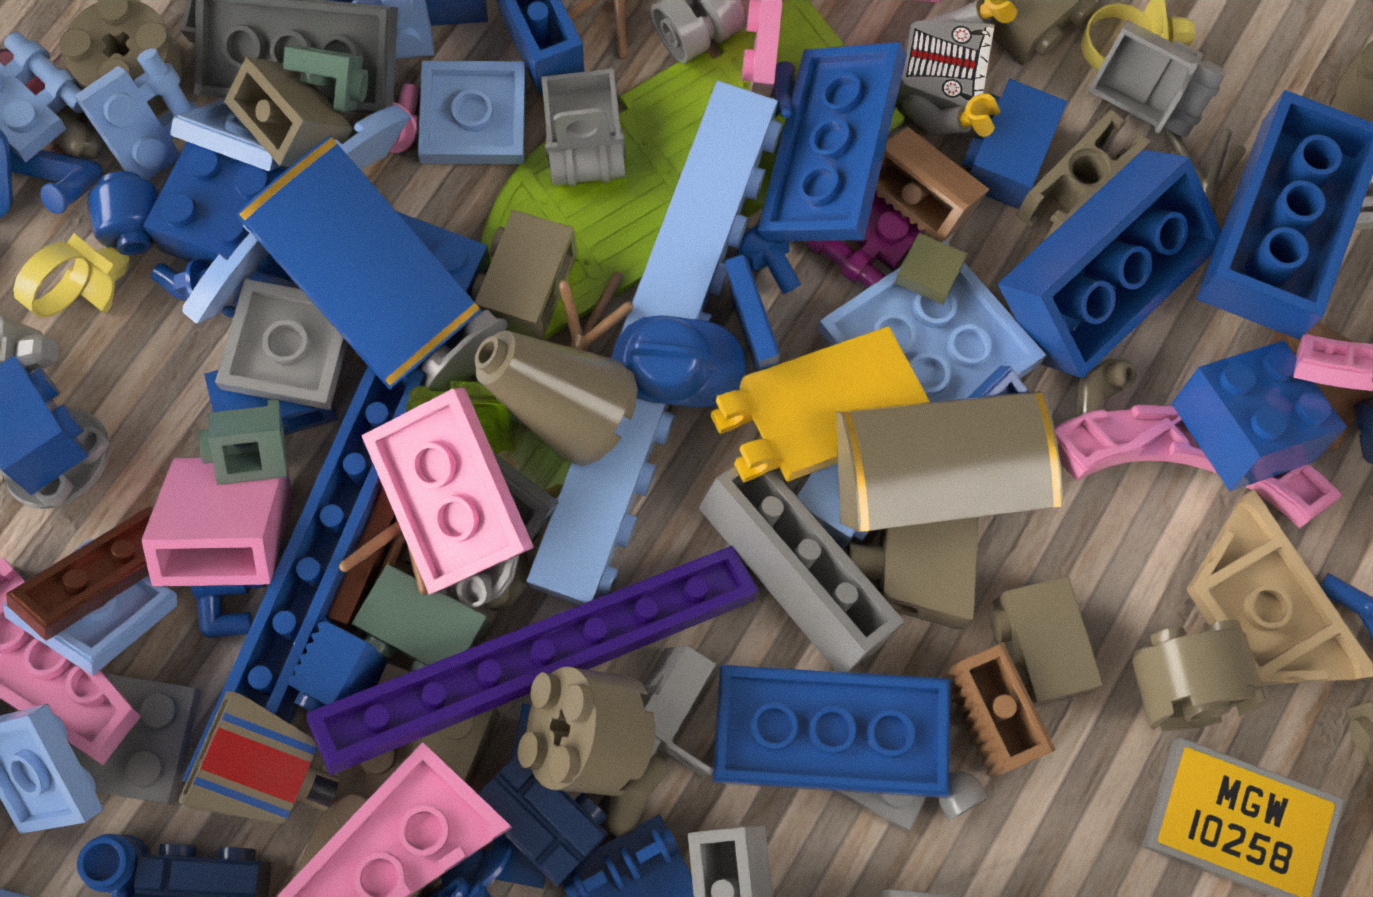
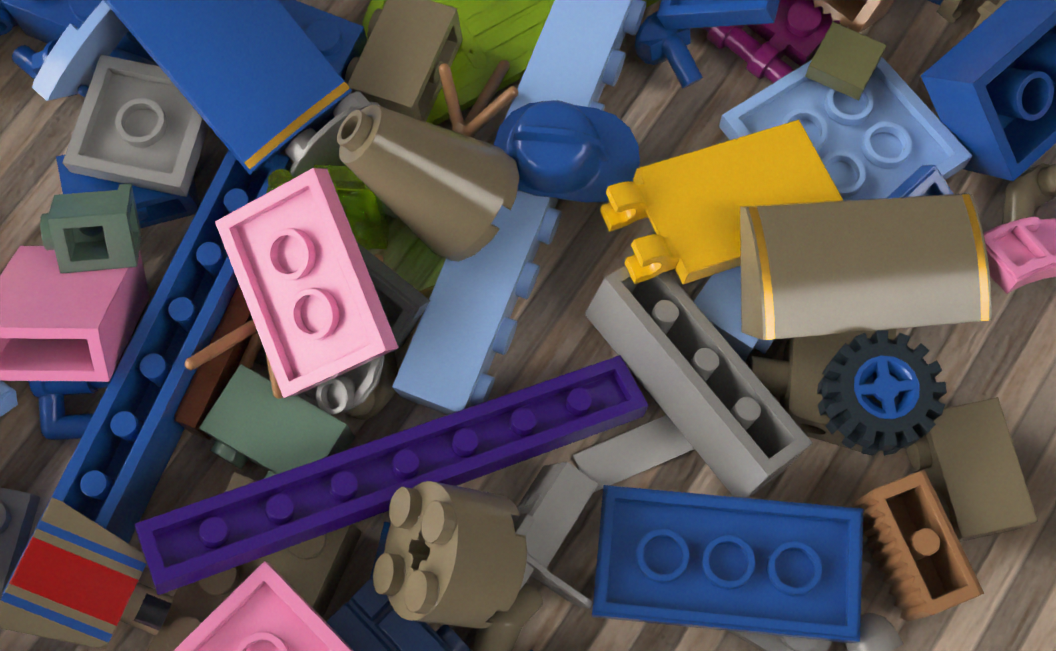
camera: 10 degrees right, 0 degrees up
(335, 667) = (174, 474): blue brick -> none
(745, 633) = (632, 452): none -> white sticker
(751, 314) = (647, 101): blue tile -> none
(975, 561) = (899, 381): none -> black wheel

